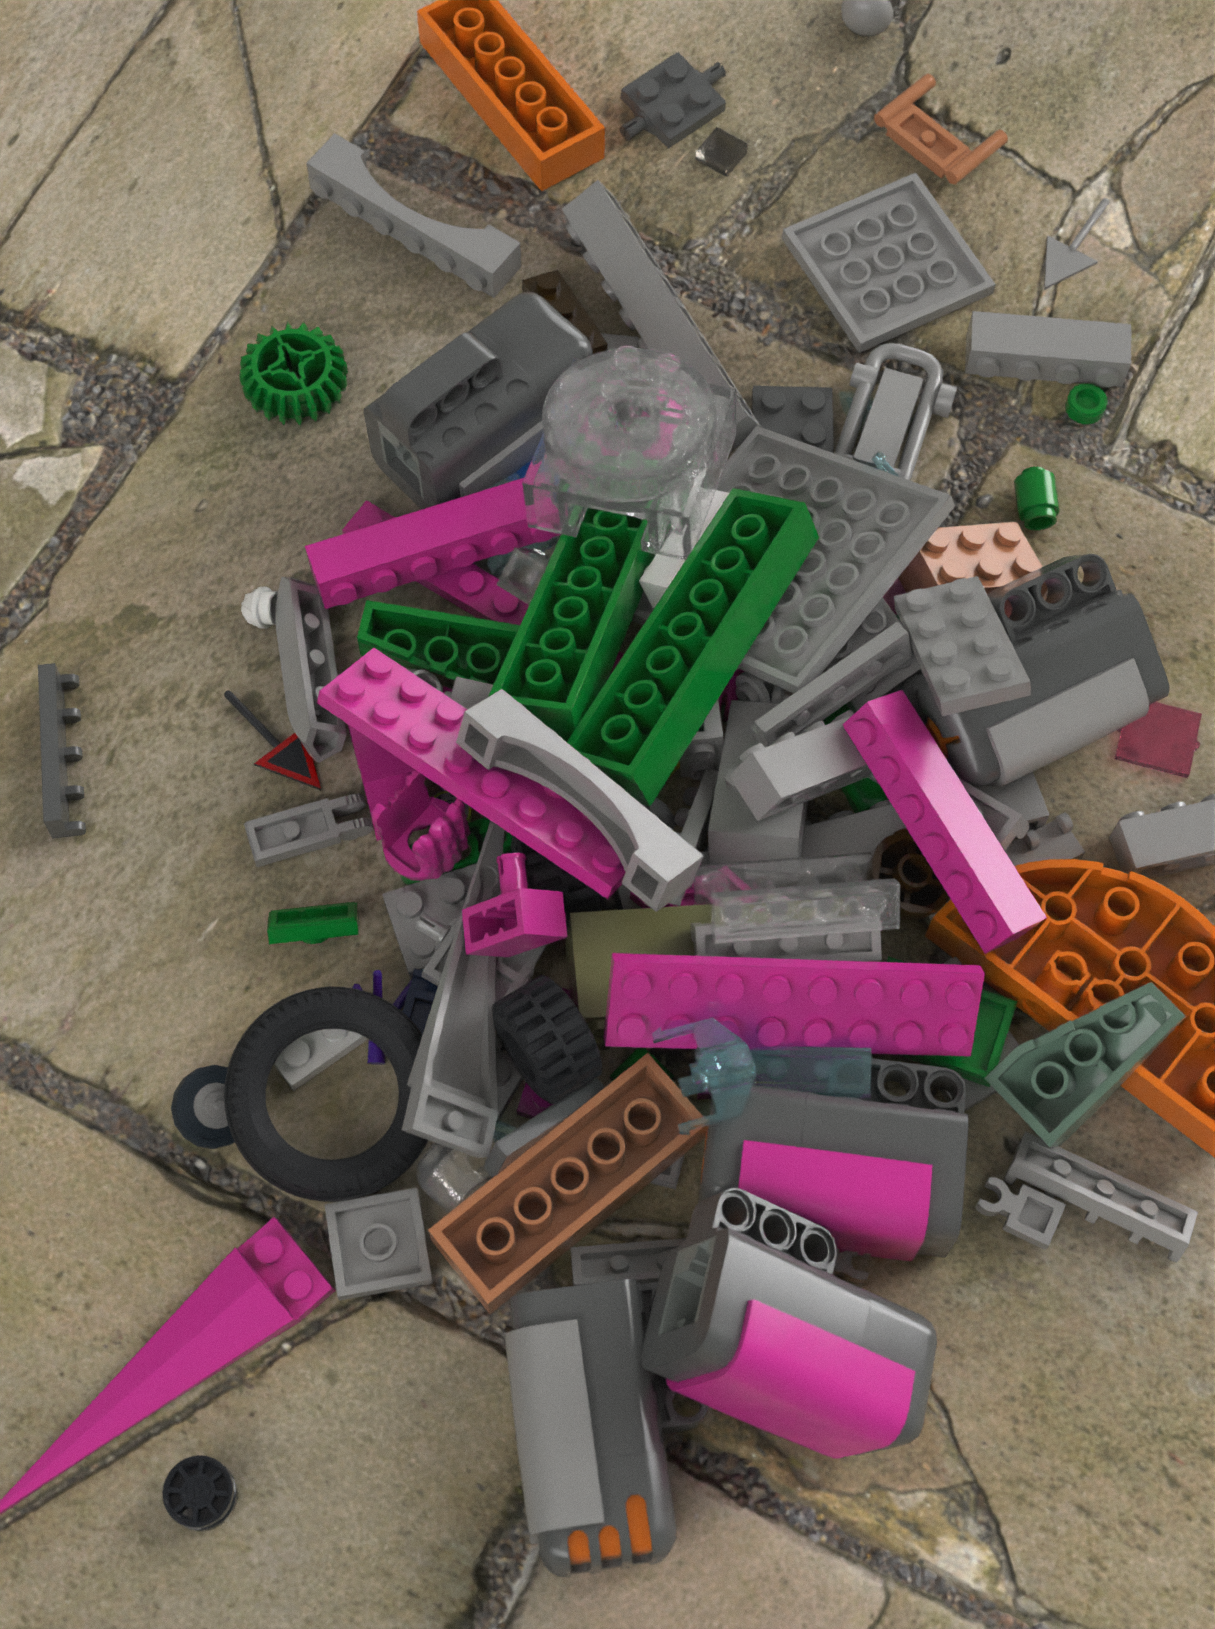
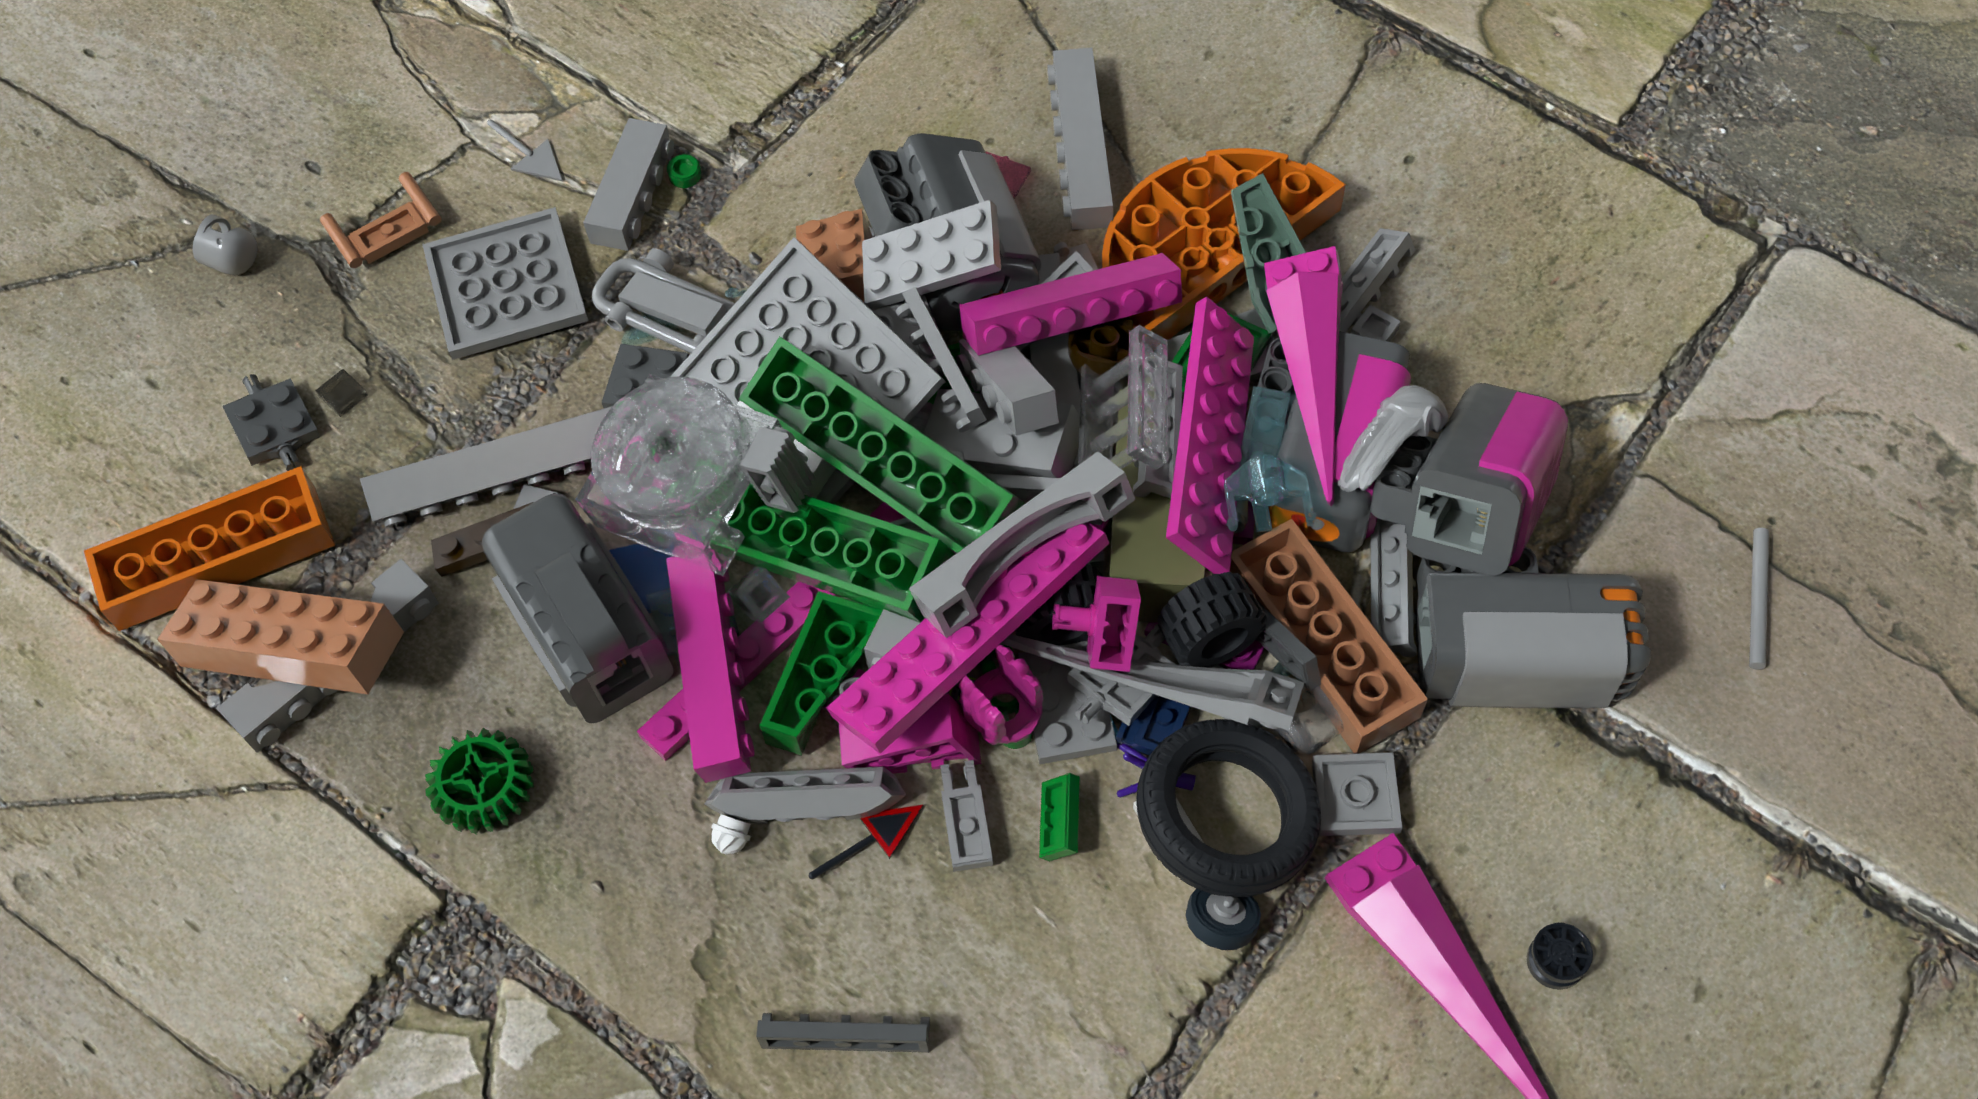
camera: 75 degrees left, 5 degrees down
(409, 162) = (282, 636): none -> nougat brick
(634, 535) = (777, 469): none -> light grey brick
(826, 1214) = (1404, 414): none -> light grey hair
(988, 1098) = (1306, 311): none -> dark pink plate
(1036, 498) = (767, 216): green brick -> none

